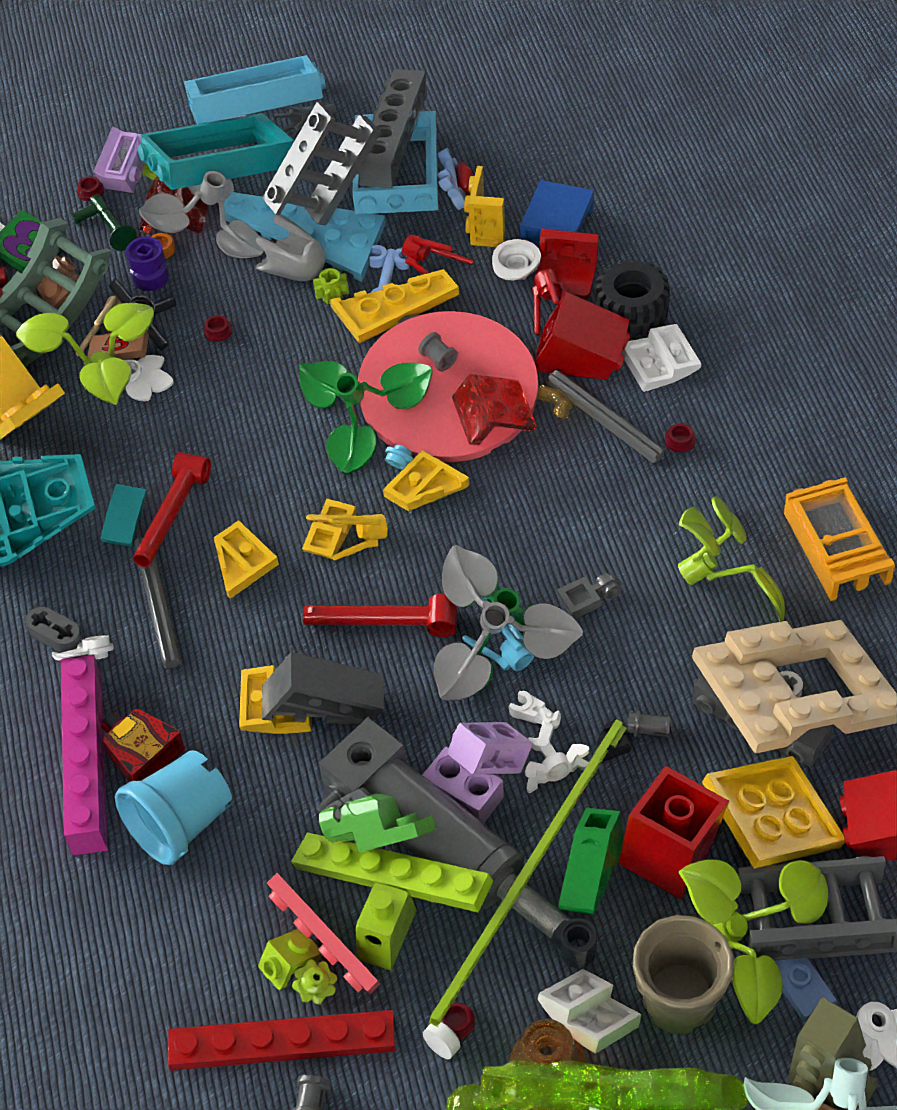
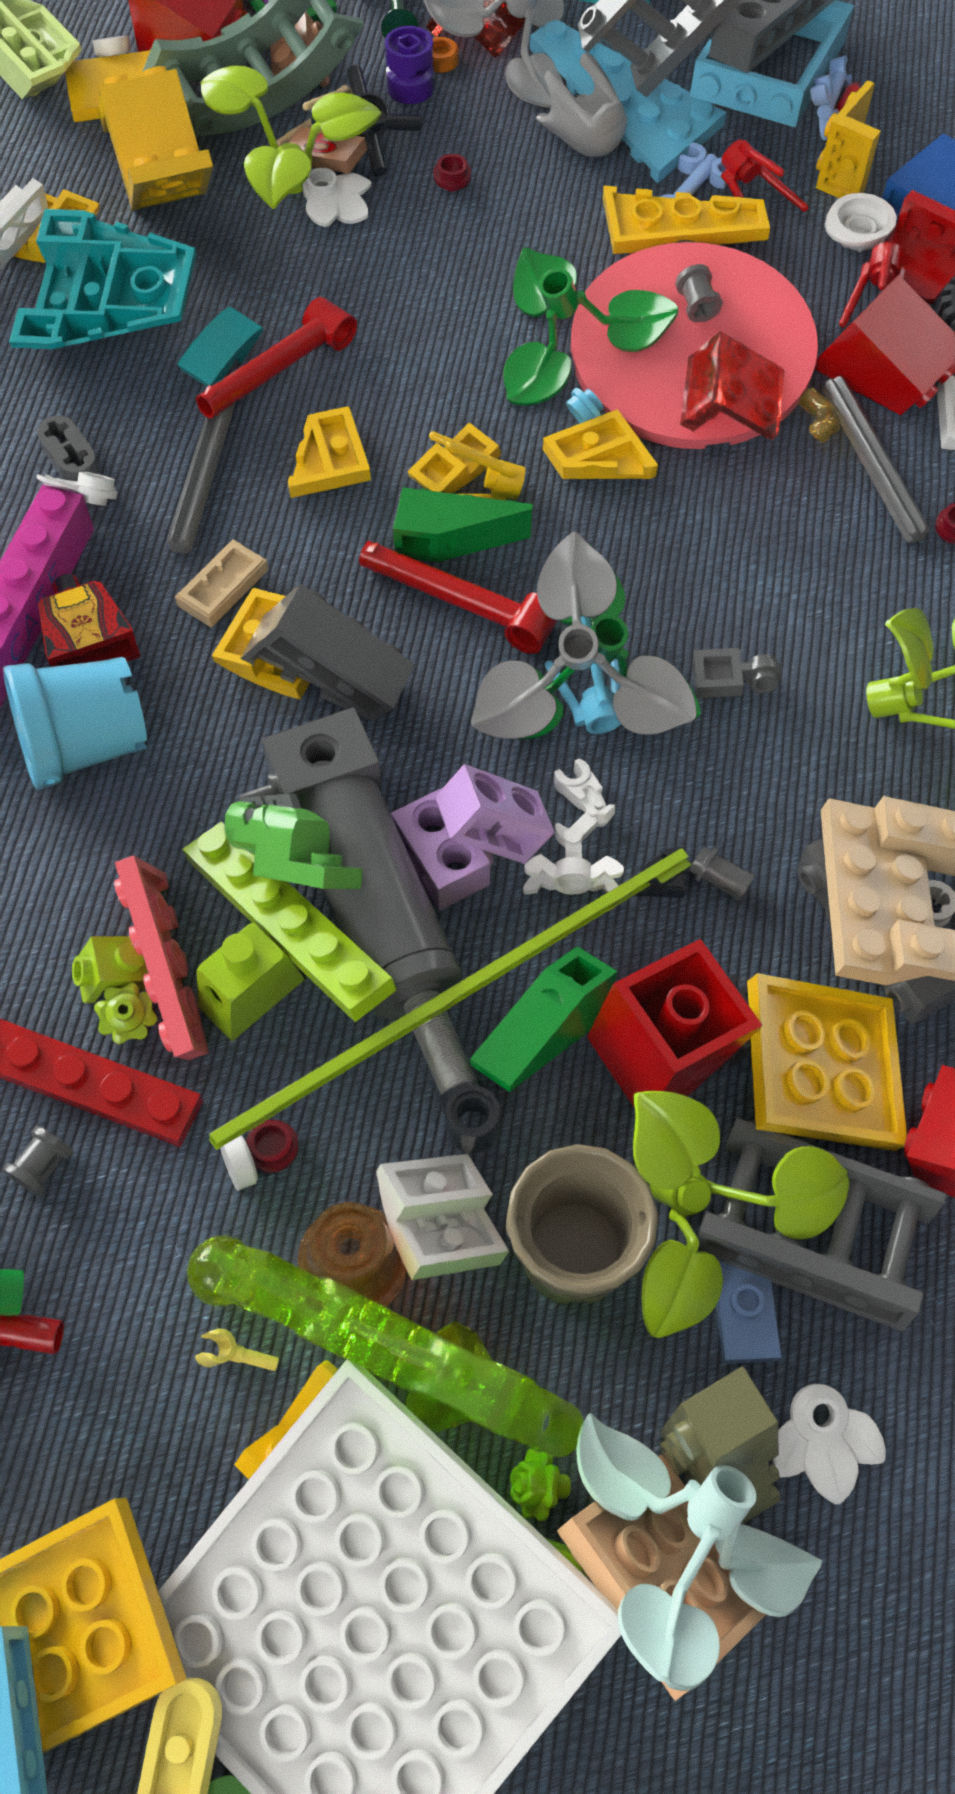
camera: 20 degrees right, 10 degrees up
(217, 675) = (221, 583): none -> tan plate
(330, 285) = (614, 169): lime gear -> none
(350, 574) = (450, 525): none -> green slope

